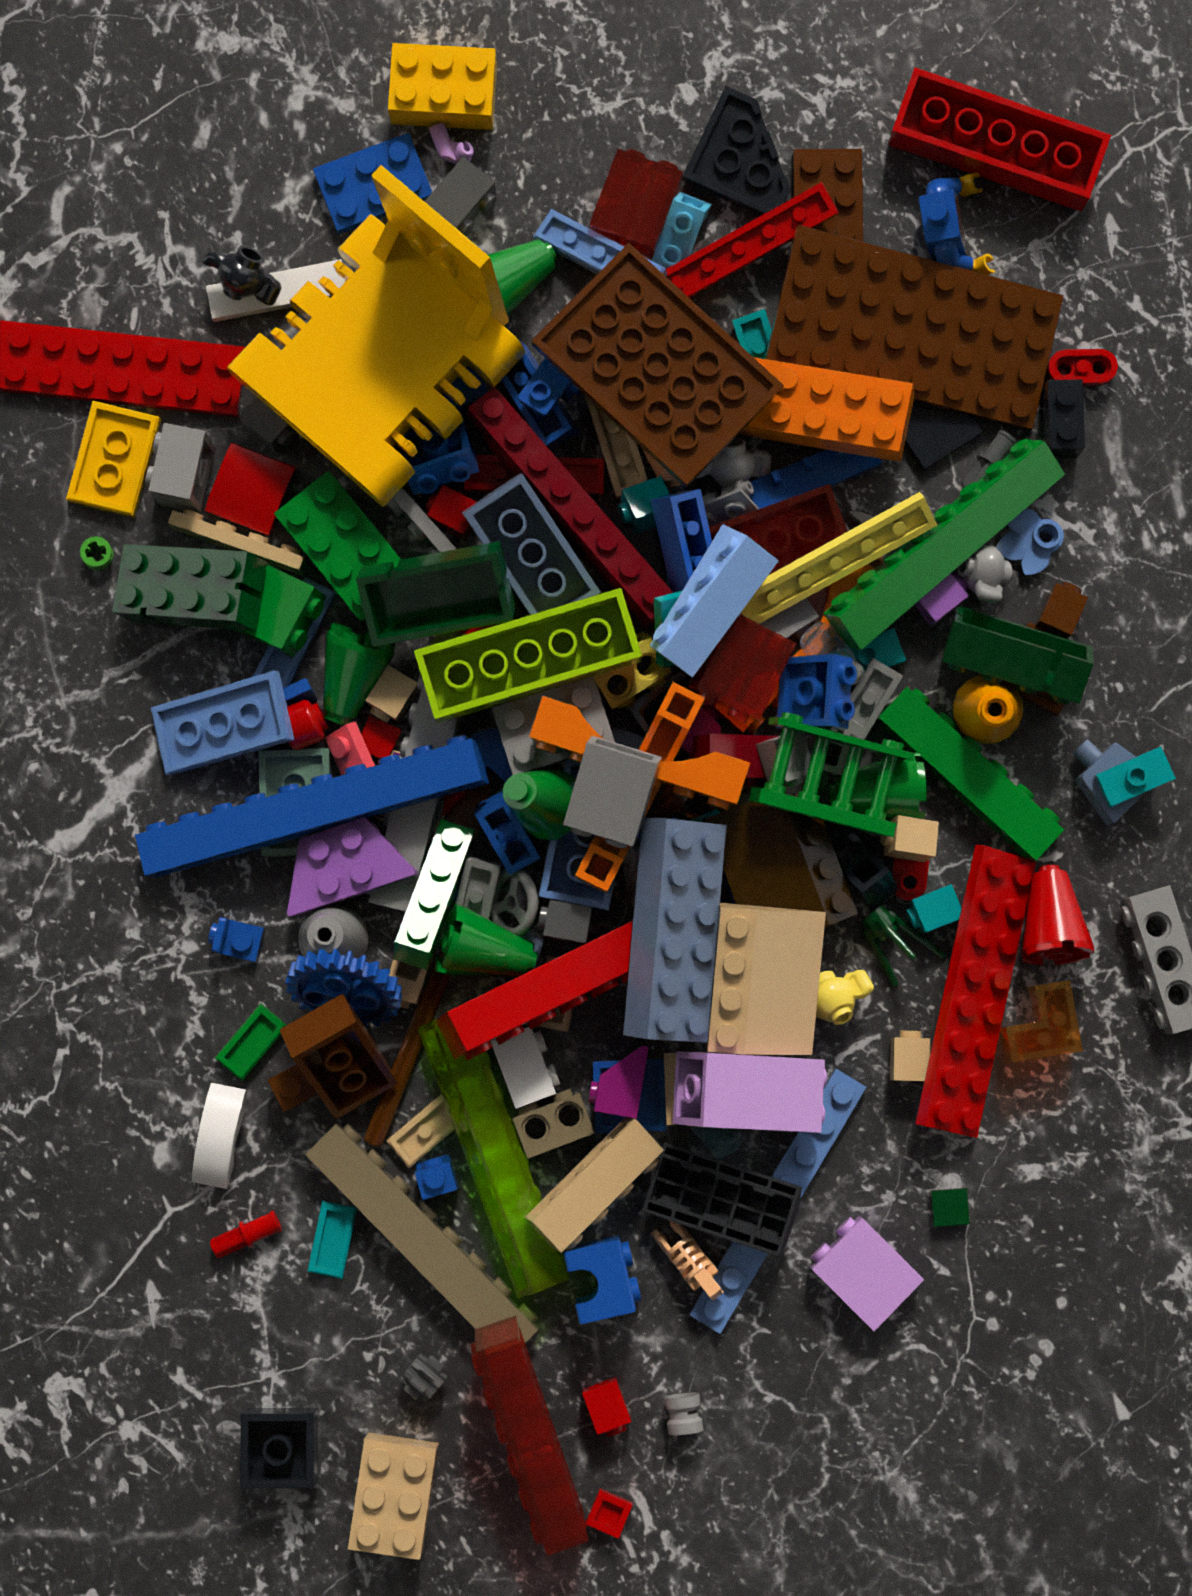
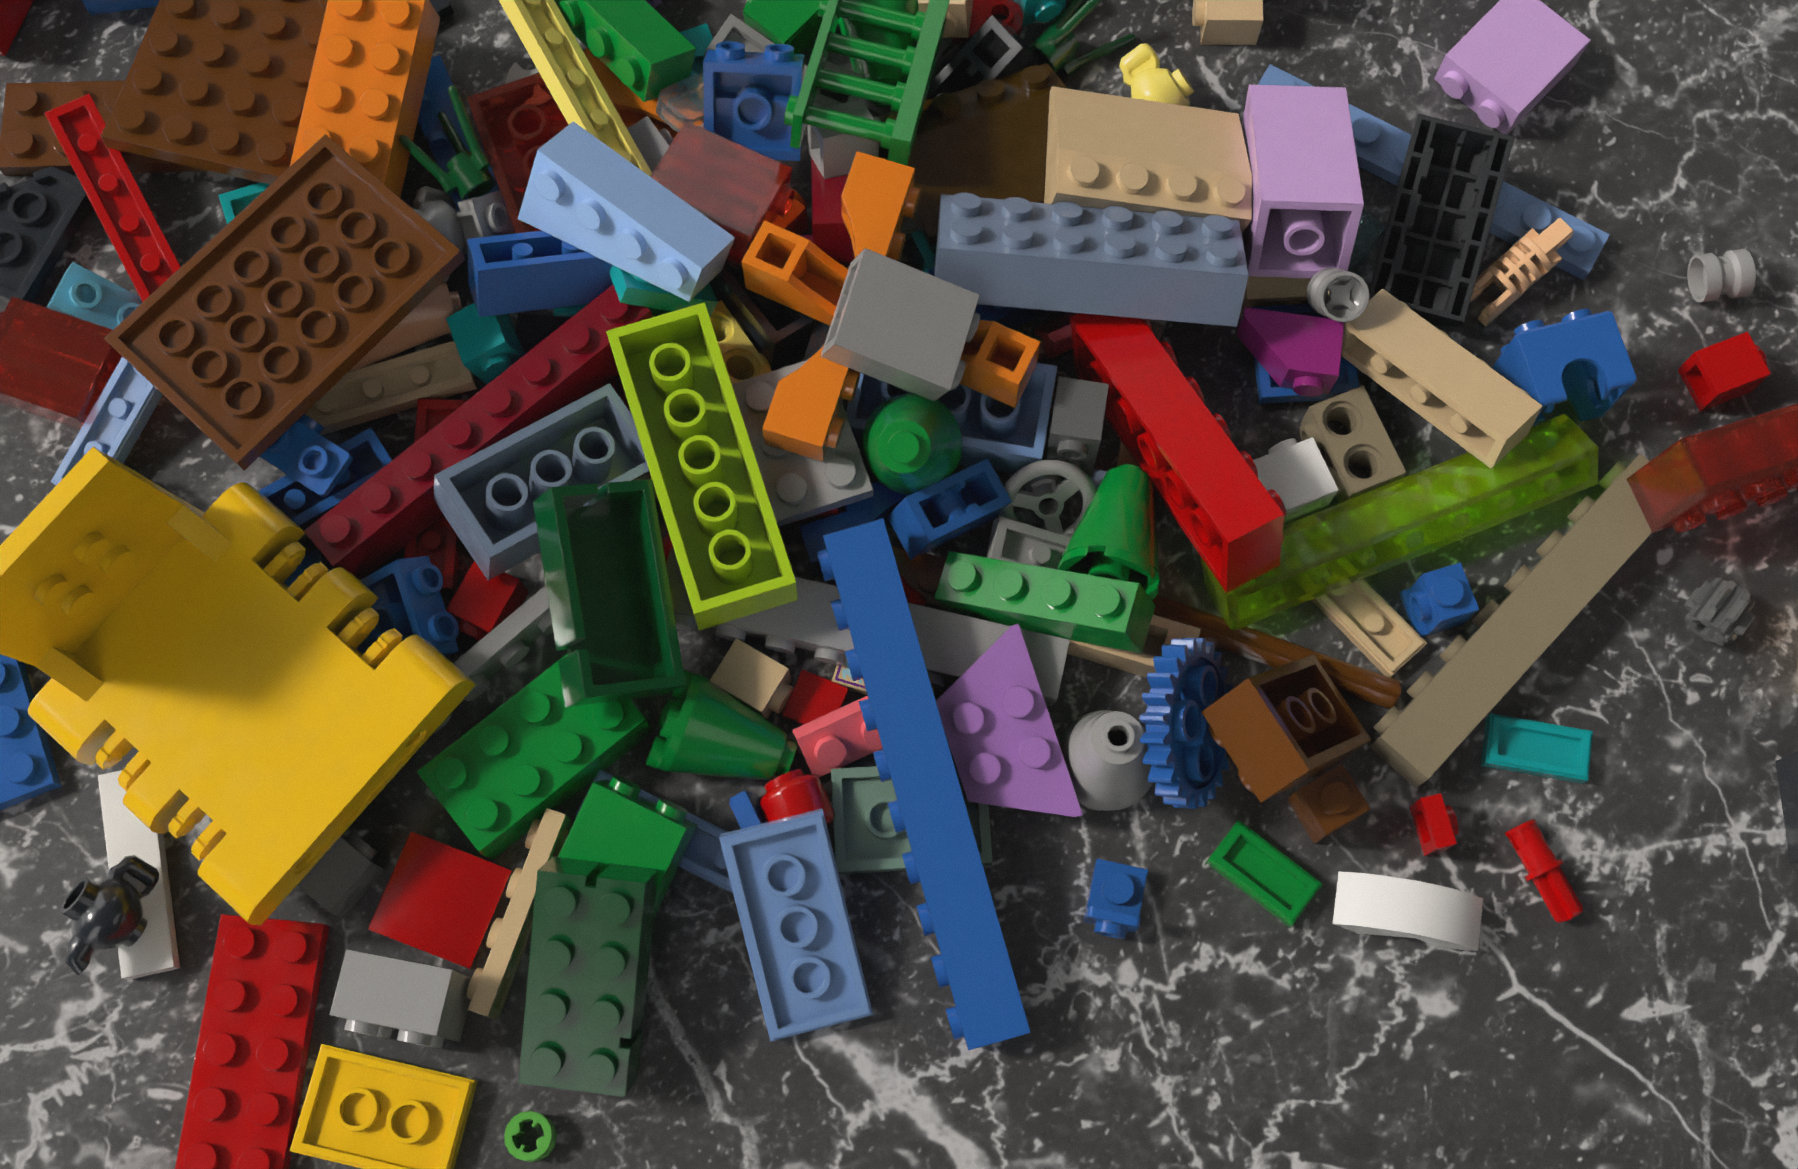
camera: 90 degrees left, 10 degrees down
(278, 1161) = (1434, 824): none -> red plate
(653, 1112) = (1346, 299): none -> light grey wheel
(772, 487) = (468, 169): none -> dark green plant

